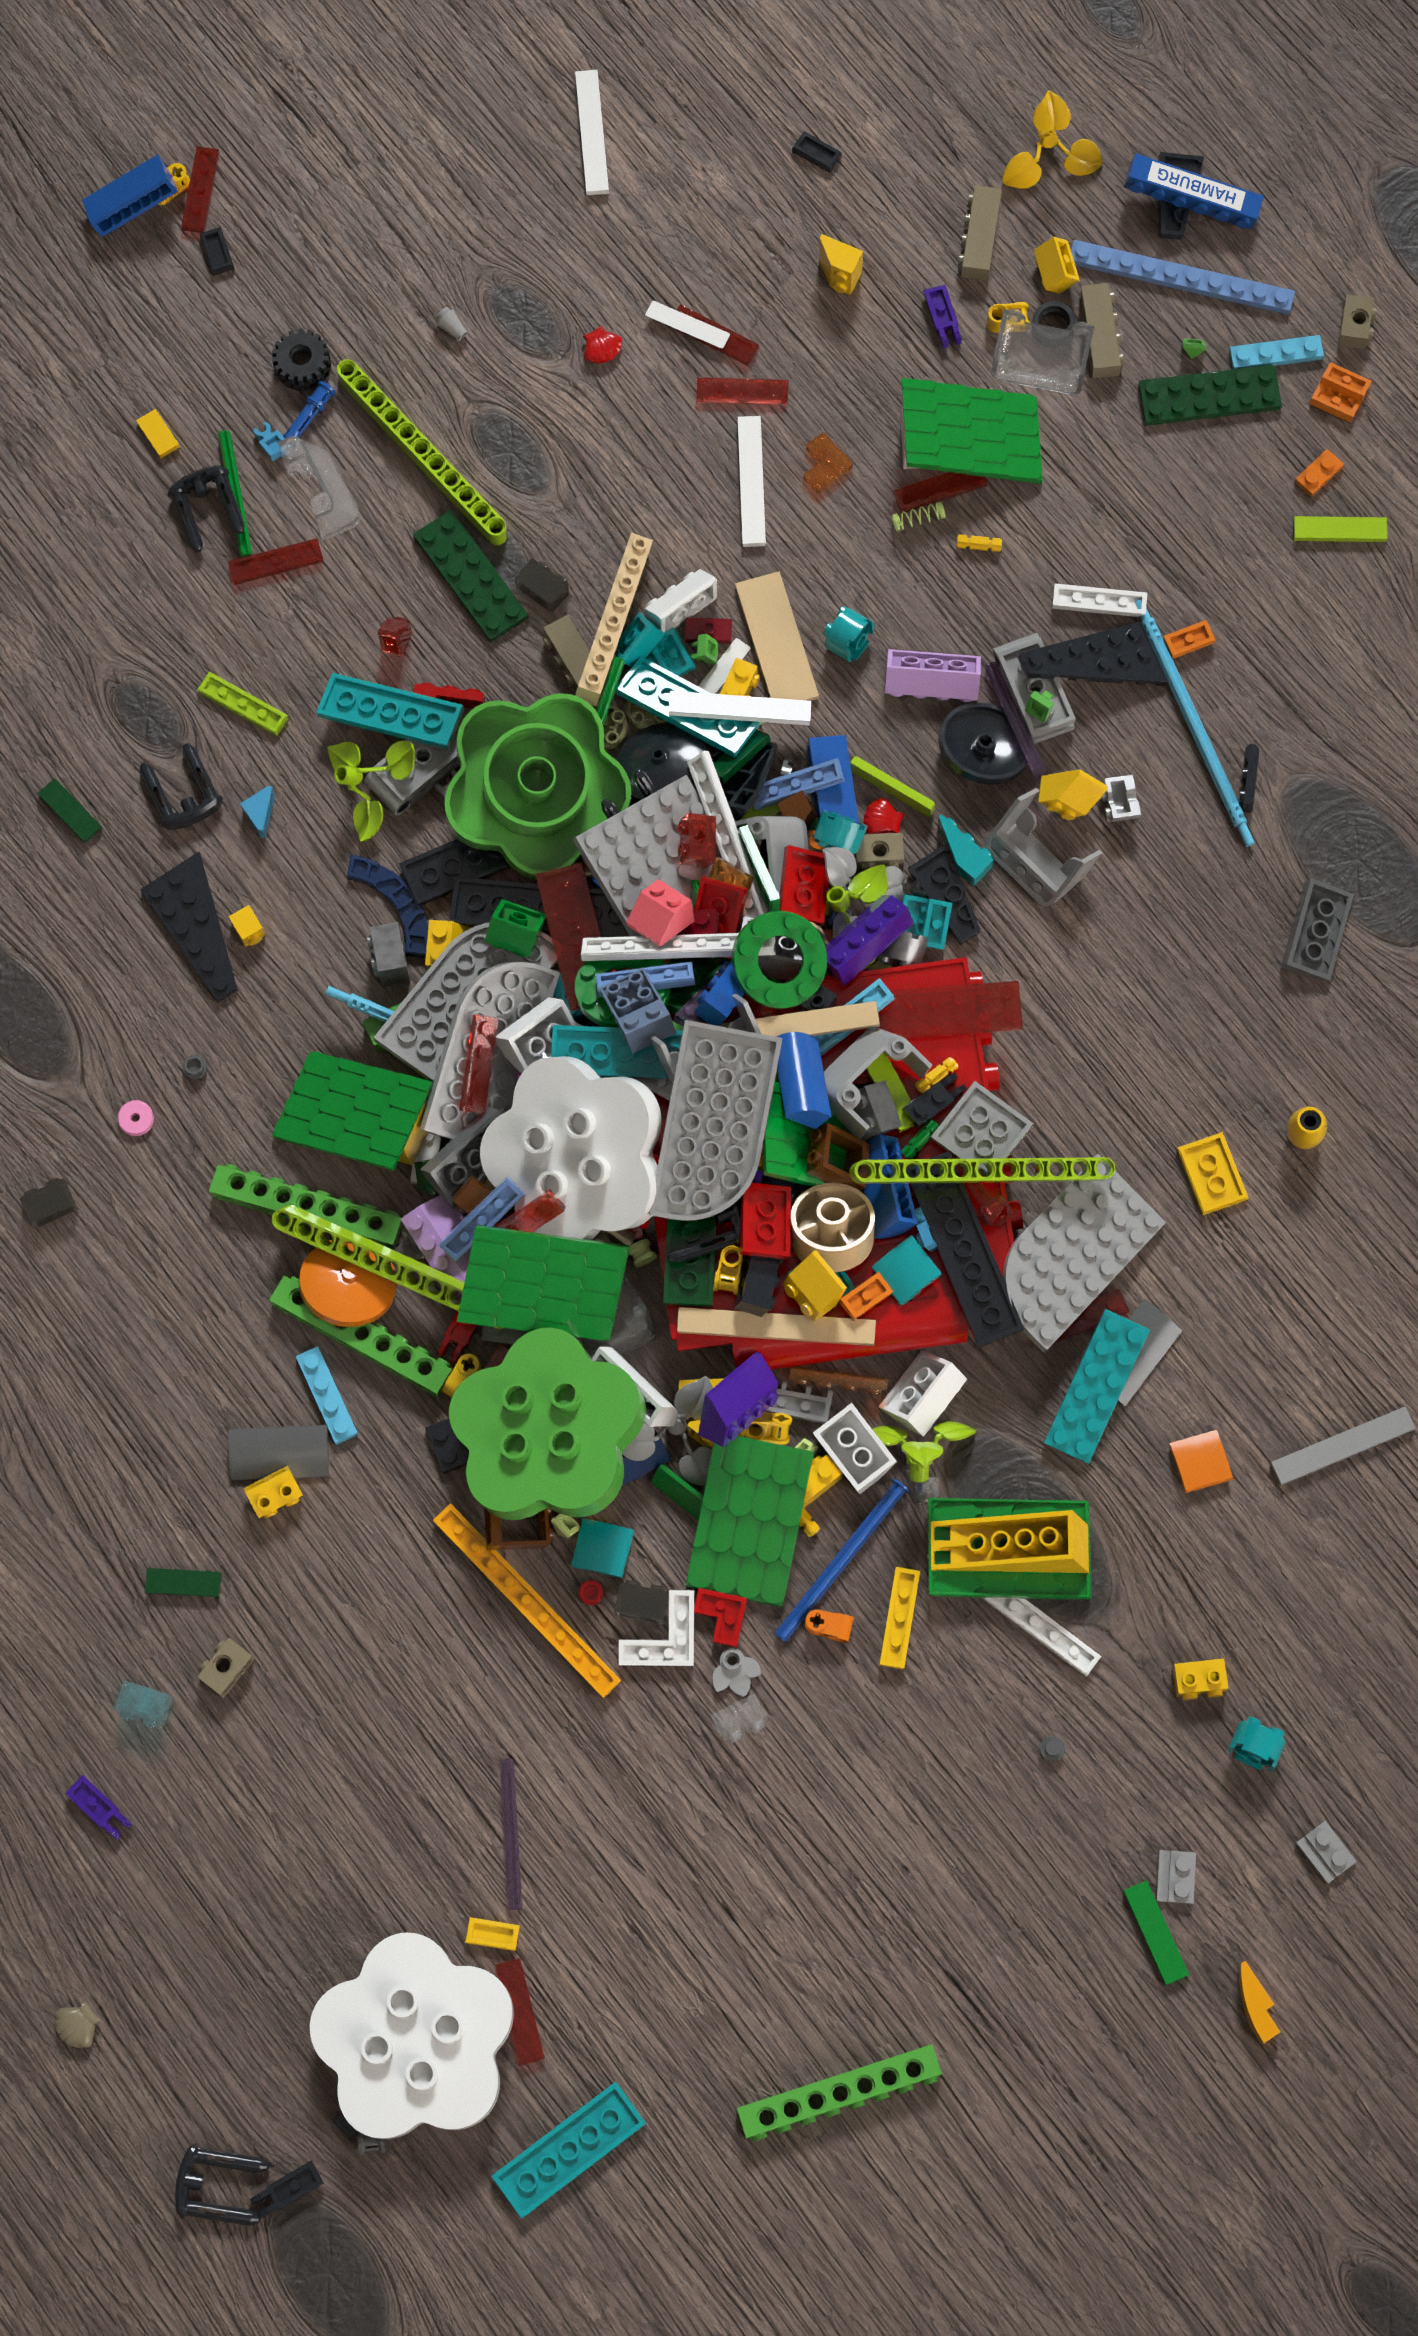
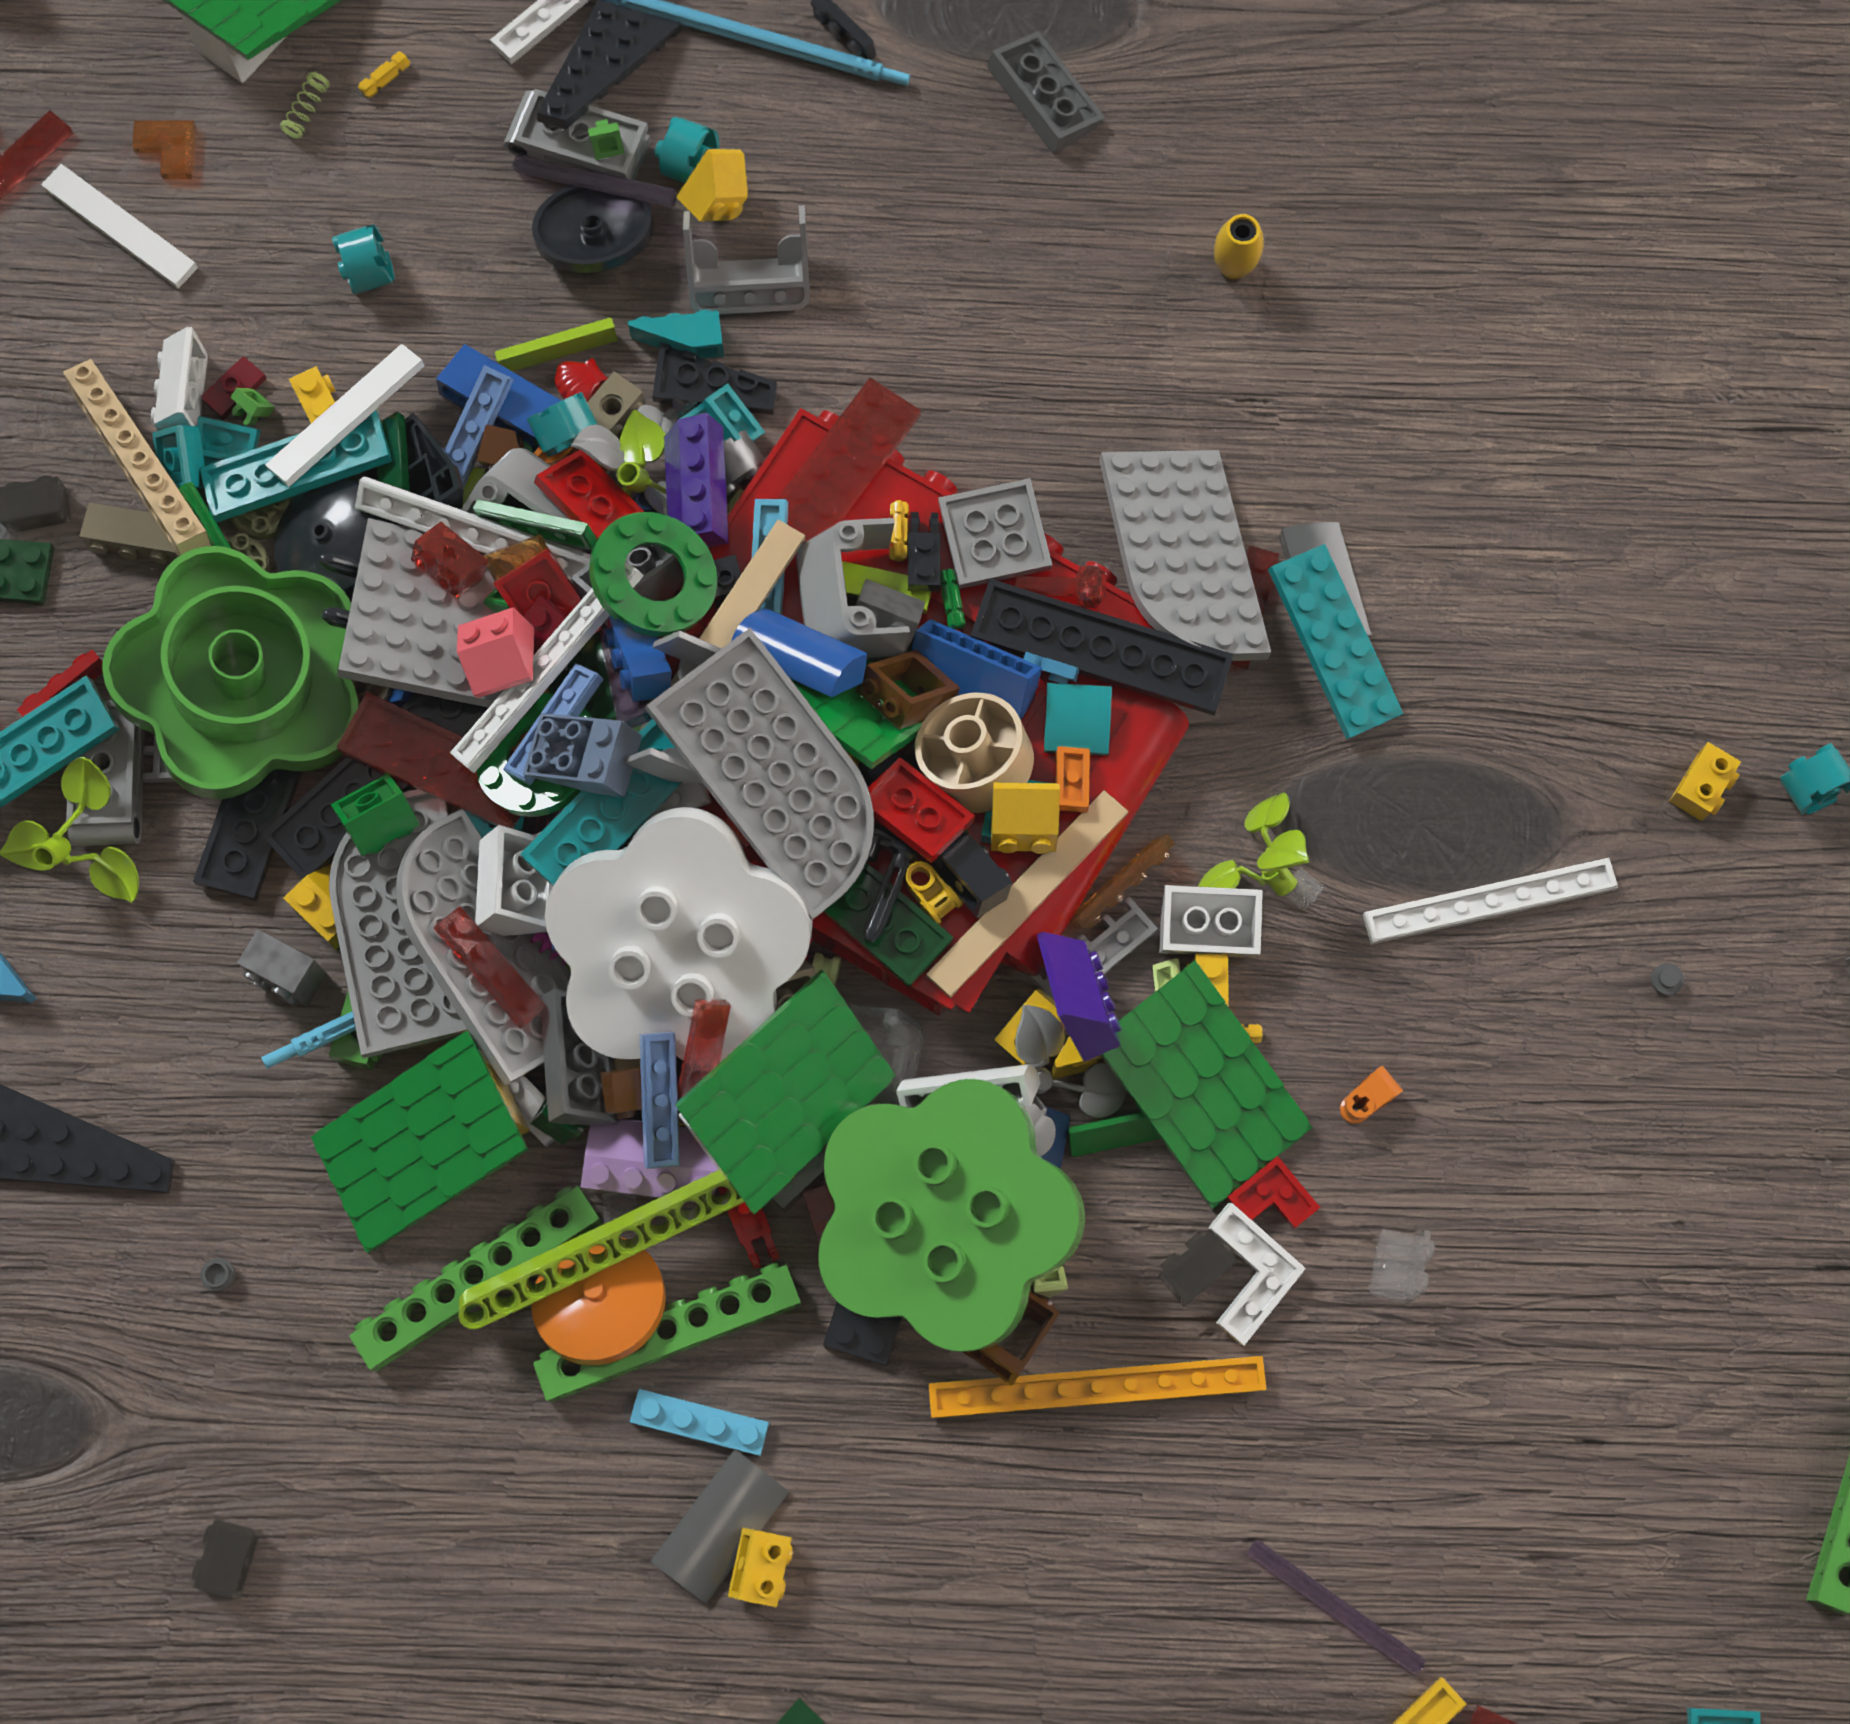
camera: 55 degrees left, 0 degrees up
(133, 1108) = (204, 1376): bright pink piece -> none
(247, 926) = (115, 1093): yellow brick -> none
(400, 896) = (227, 910): dark blue tile -> none
(459, 1373) = (804, 1265): yellow piece -> none
(591, 1593) = (1141, 1312): red tile -> none
(602, 1548) = (1106, 1262): teal slope -> none
(720, 671) = (284, 401): white sticker -> none
(735, 1676) = (1348, 1231): light grey plate -> none
(770, 1427) = (1123, 985): yellow piece -> none
(776, 638) = (301, 331): tan tile -> none
(787, 767) = (445, 427): dark grey tile -> none
(841, 1560) = (1311, 1031): blue axle -> none
(899, 1618) = (1417, 1020): yellow plate -> none
(923, 1392) = (1202, 811): white slope -> none
(933, 675) = (478, 219): lavender slope -> none
(936, 490) = (294, 66): clear red plate -> none
(993, 1166) = (1032, 570): lime beam -> none
(1014, 1546) = (1431, 857): piece -> none
(1082, 753) = (684, 148): none -> teal brick
(1121, 799) = (763, 154): light grey cylinder -> none
(1201, 1461) = (1485, 608): orange slope -> none
(1212, 1173) = (1204, 371): yellow tile -> none
(1342, 1446) = (1572, 471): light grey tile -> none

